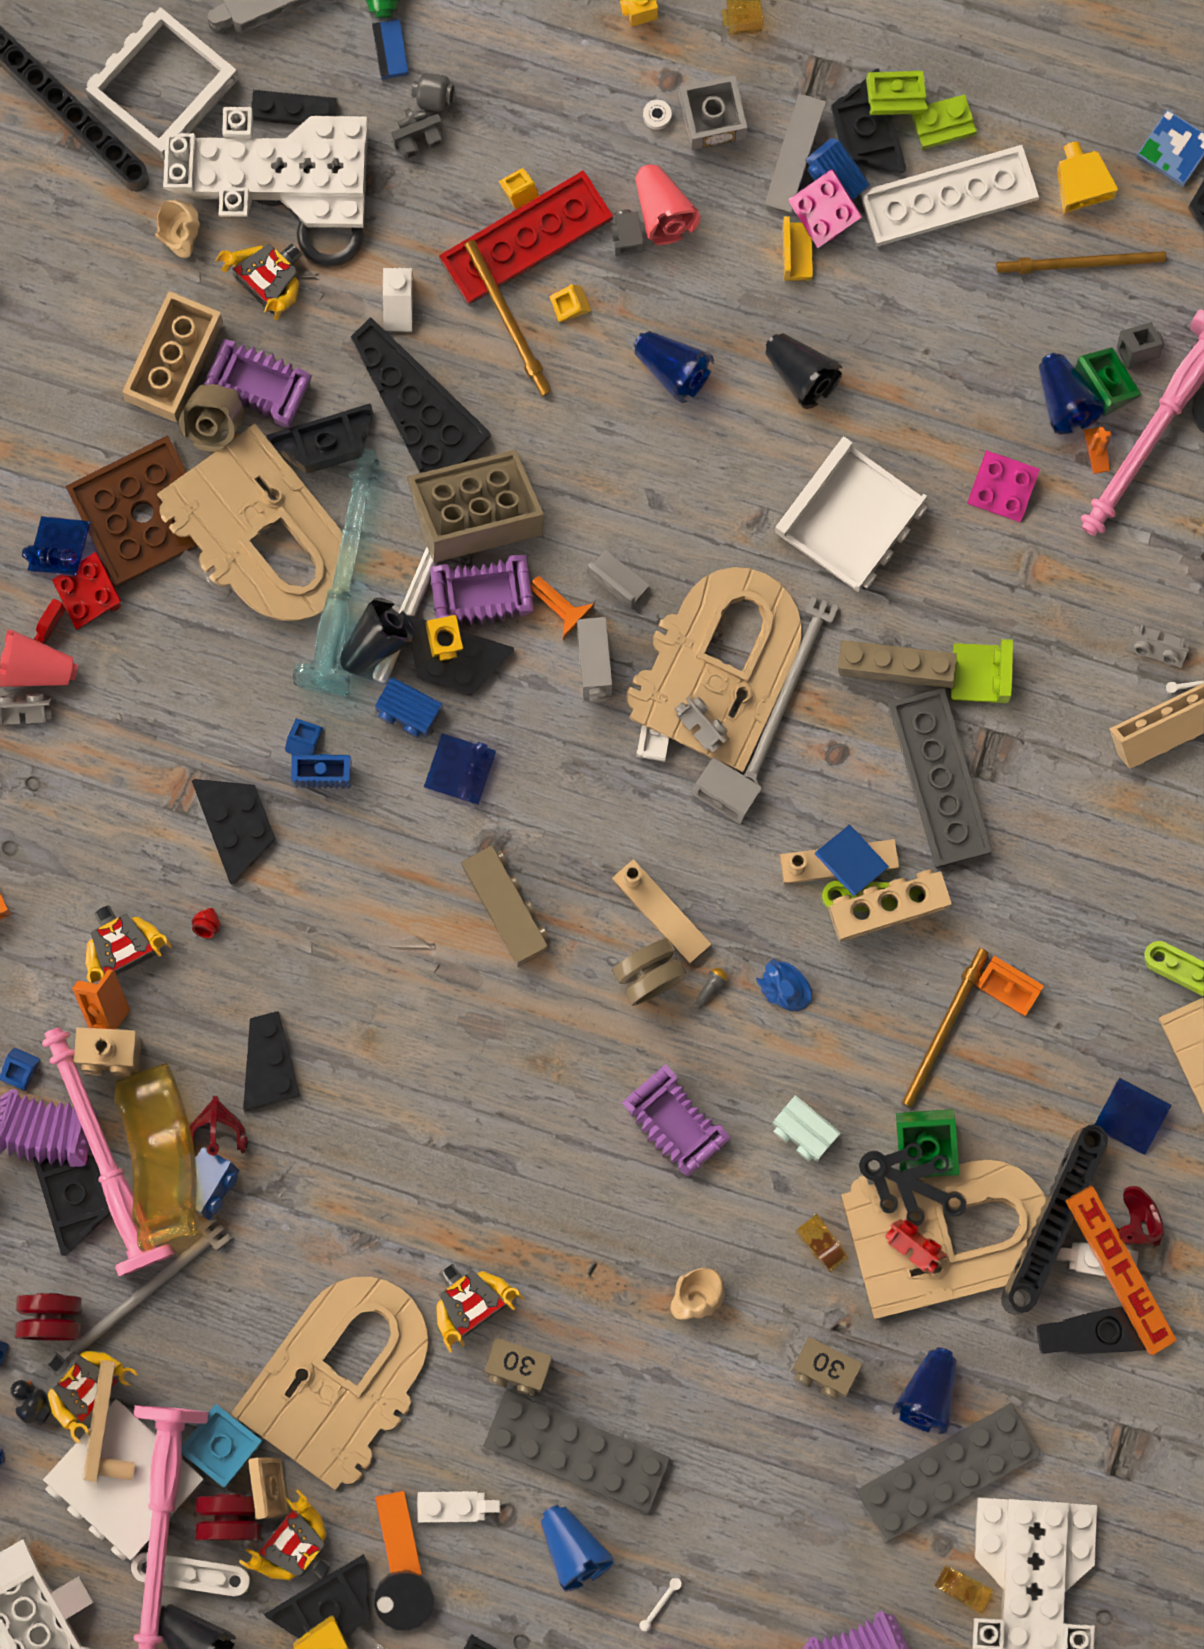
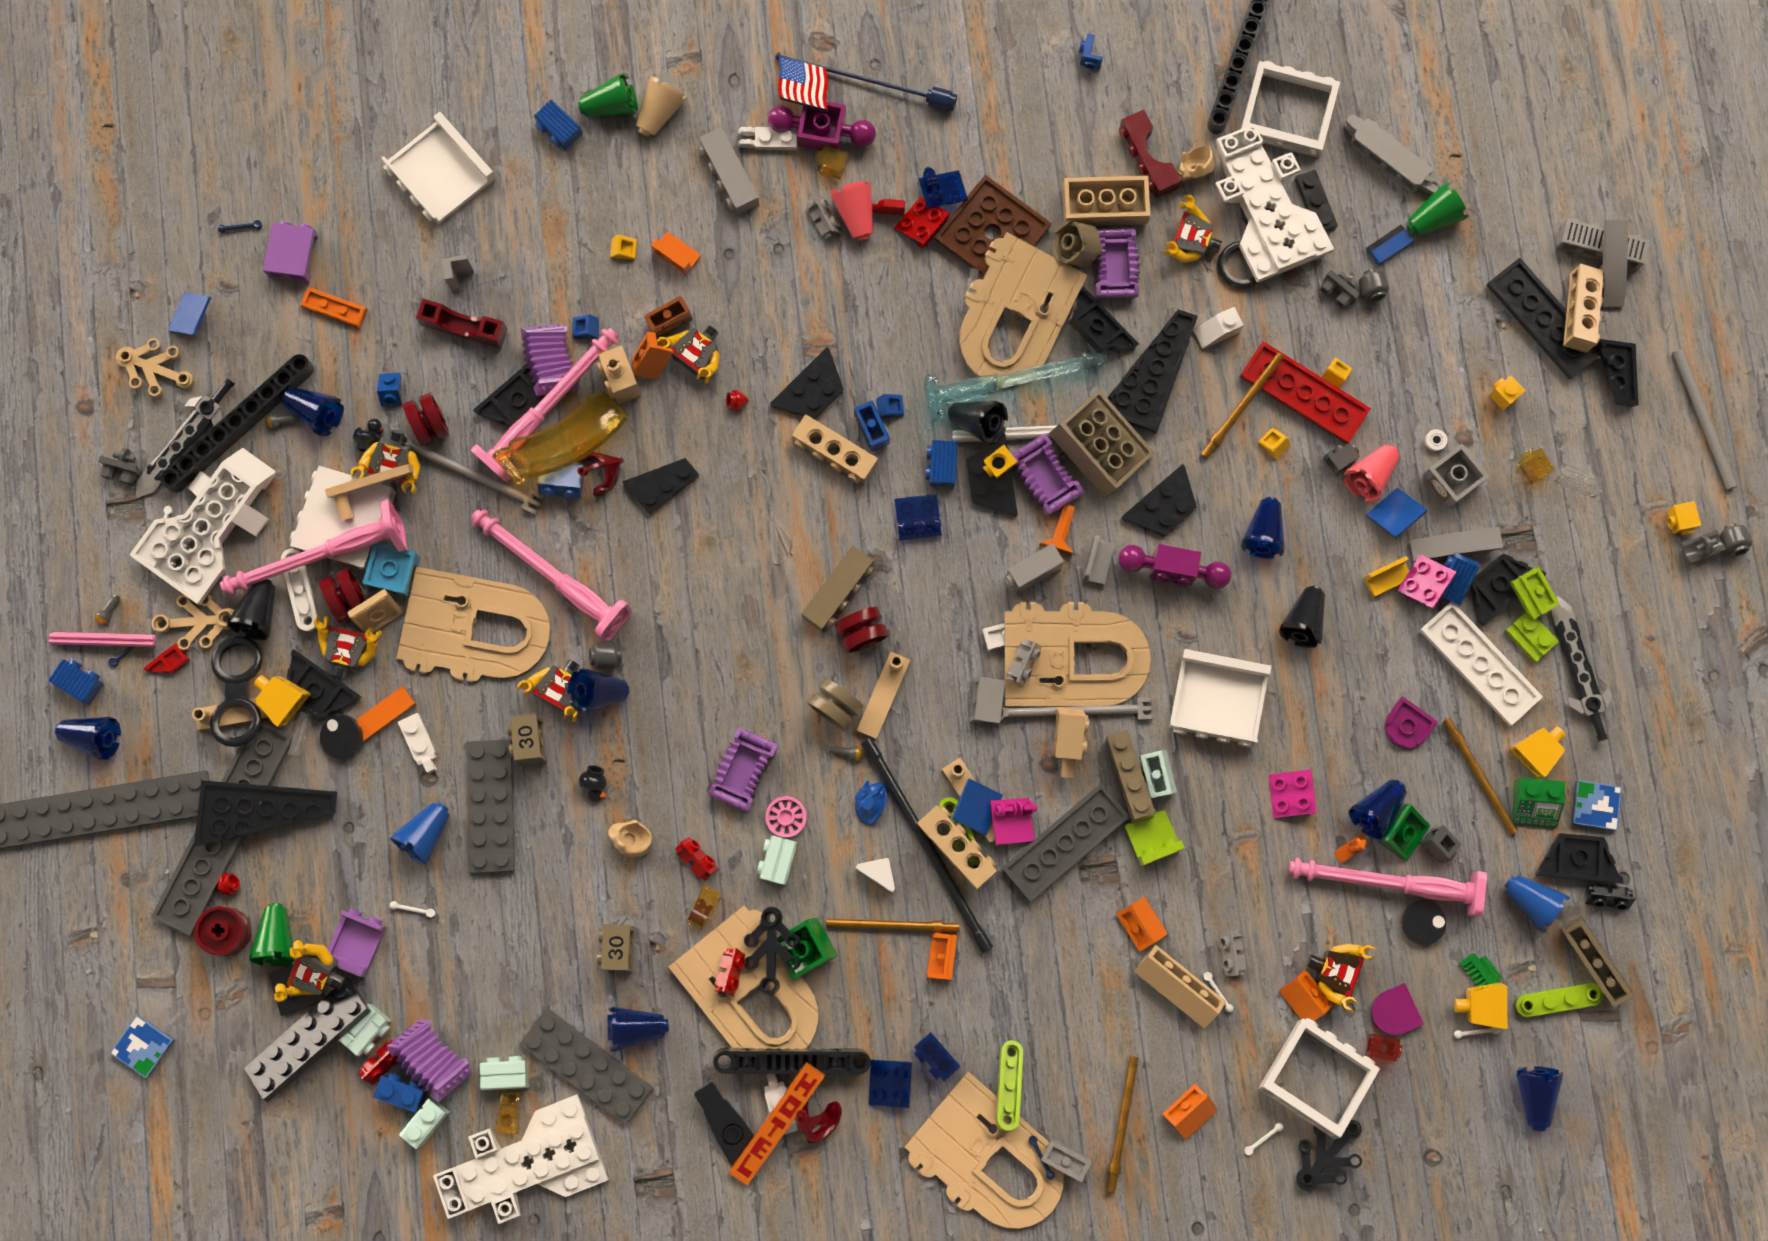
camera: 65 degrees right, 0 degrees up
(61, 957) = (668, 317): none -> dark orange brick
(101, 279) = (1161, 176): none -> dark red arch
(354, 1230) = (609, 618): none -> bright pink piece
(360, 799) = (809, 428): none -> tan brick
(454, 1228) = (604, 655): none -> dark grey head
(497, 1256) = (595, 690): none -> clear blue cone
(572, 898) = (861, 629): none -> dark red wheel
(585, 468) = (1164, 505): none -> black wing
(605, 1309) = (595, 781): none -> black animal
(667, 491) = (1175, 566): none -> magenta brick
(724, 202) = (1396, 512): none -> blue piece
(745, 1228) = (690, 850): none -> red hinge
(755, 1096) = (785, 817): none -> bright pink wheel
(818, 711) = (1069, 738): none -> tan brick
(876, 1013) = (879, 872): none -> white slope
(885, 826) = (1013, 820): none -> dark pink hinge
(908, 629) = (1158, 773): none -> light aqua brick
(915, 1575) = (504, 1074): none -> light aqua brick
(982, 314) = (1408, 725): none -> magenta tile
(1001, 931) = (977, 932): none -> black piece
(1032, 90) = (1590, 700): none -> sword
(1077, 734) = (1141, 924): none -> orange panel
(1126, 1045) = (939, 1059): none -> clear blue brick
(1141, 211) = (1538, 802): none -> green slope

